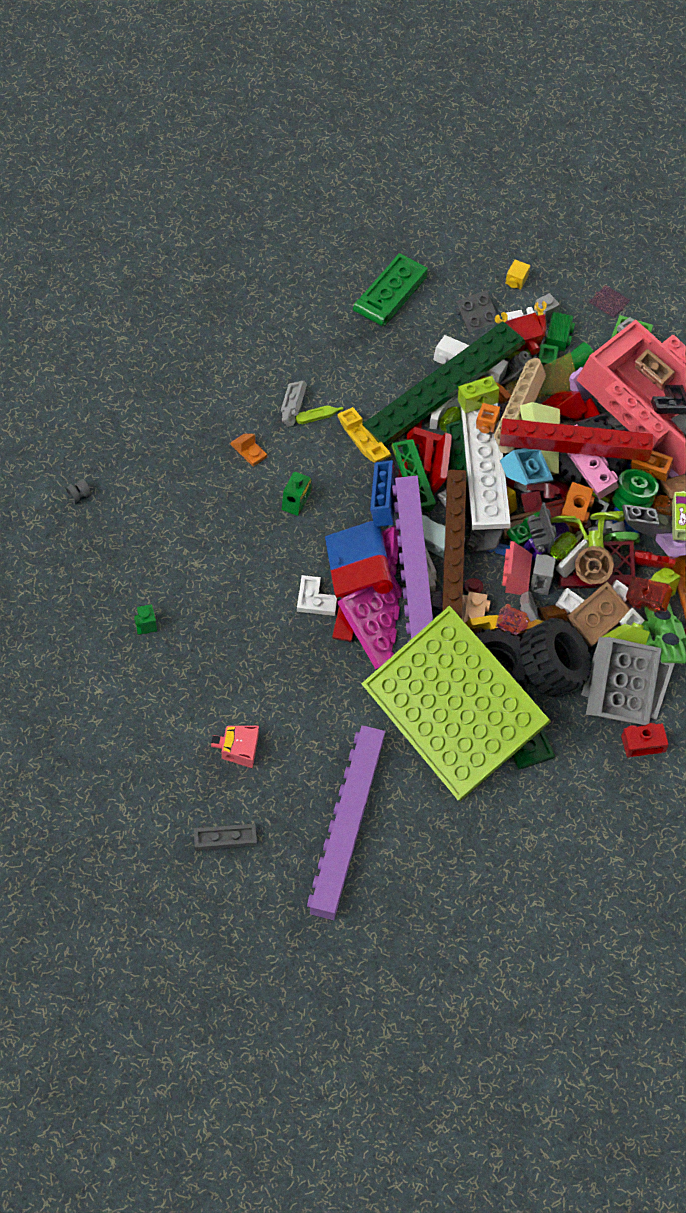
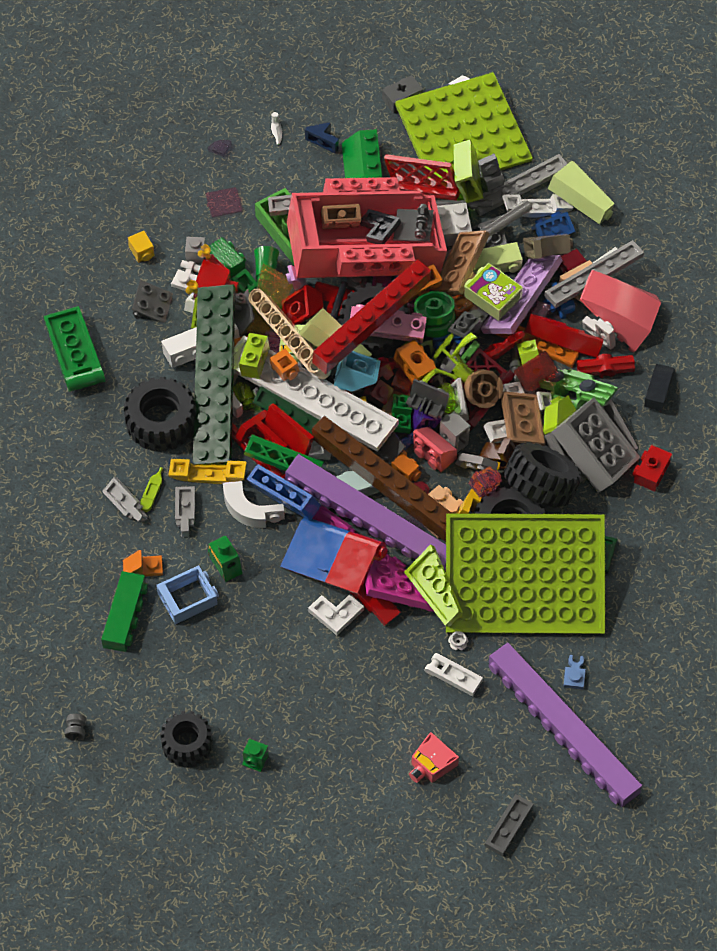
camera: 50 degrees left, 0 degrees up
(127, 577) = (186, 753): none -> black tyre
(198, 460) = (123, 611): none -> green brick
(240, 473) = (181, 580): none -> light blue window
(319, 443) = (185, 508): none -> light grey hinge
(328, 714) = (454, 674): none -> white plate
(353, 470) = (246, 512): none -> white arch
(361, 693) = (458, 636): none -> white plate
(382, 356) = (164, 433): none -> black tyre
(388, 644) = (433, 584): none -> lime wing
(401, 802) = (574, 676): none -> medium blue plate
(484, 563) = (406, 466): none -> orange brick
(654, 268) = (220, 147): none -> clear purple tile

